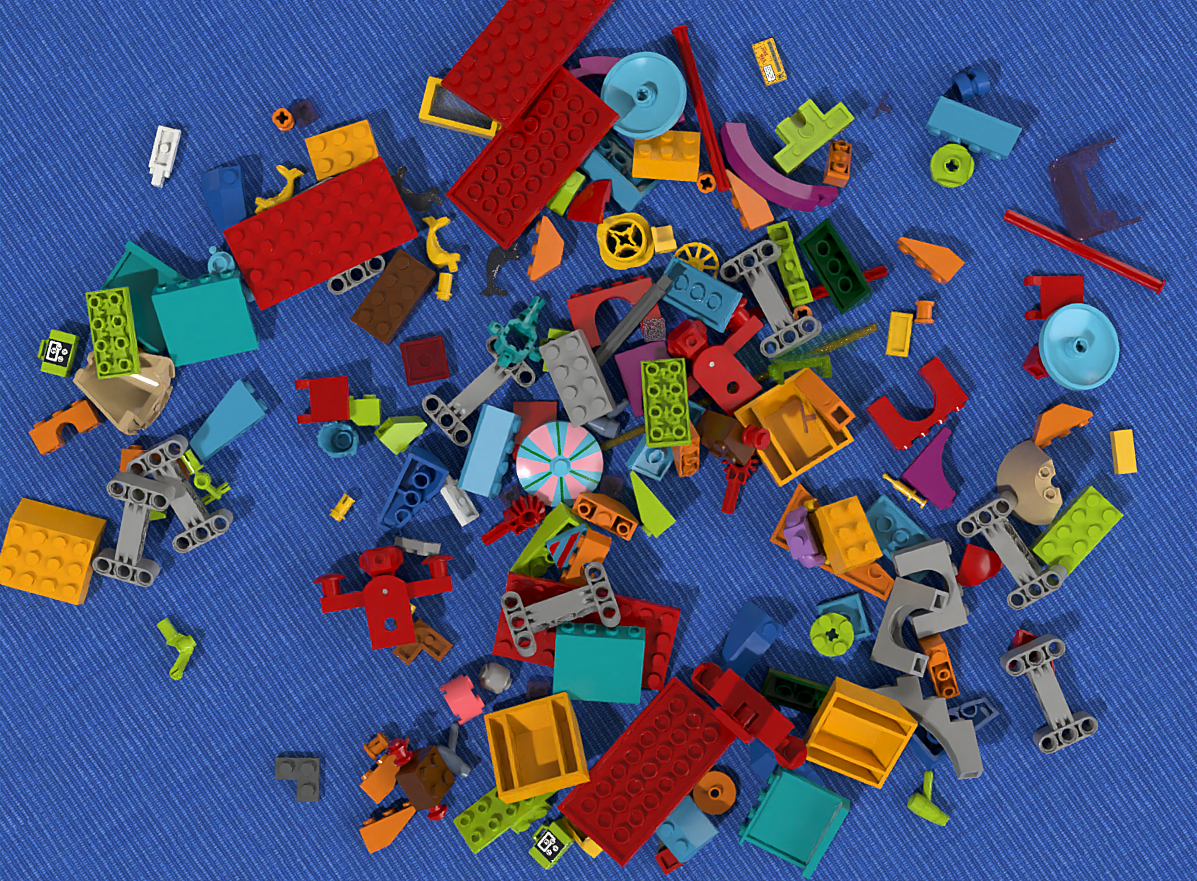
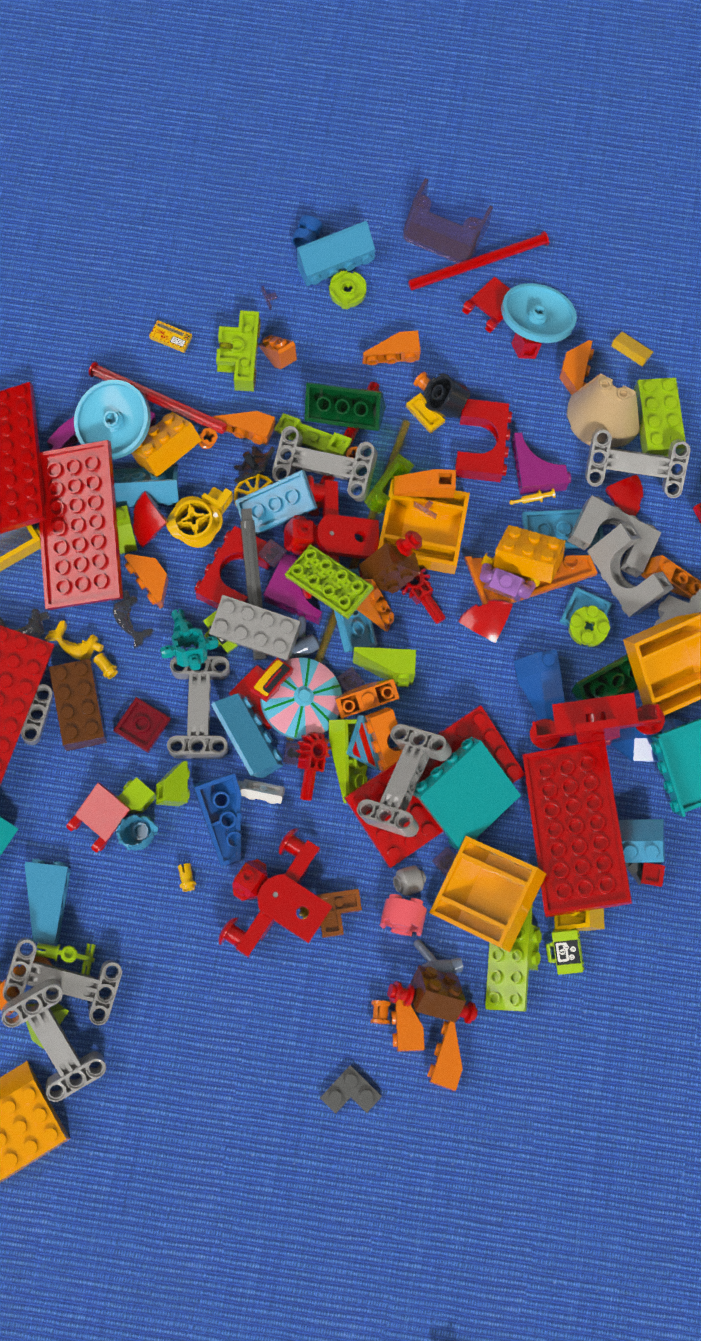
camera: 50 degrees left, 15 degrees down
(183, 644) = (171, 1088): lime pin -> none
(423, 547) = (269, 841): light grey hinge -> none
(548, 430) = (271, 679): none -> slope
(717, 240) = (253, 464): none -> black piece
(725, 798) = (641, 801): orange plate -> none
(762, 549) = (488, 618): none -> red brick
(764, 179) = (244, 398): magenta arch -> none
(924, 341) = (446, 396): none -> black brick

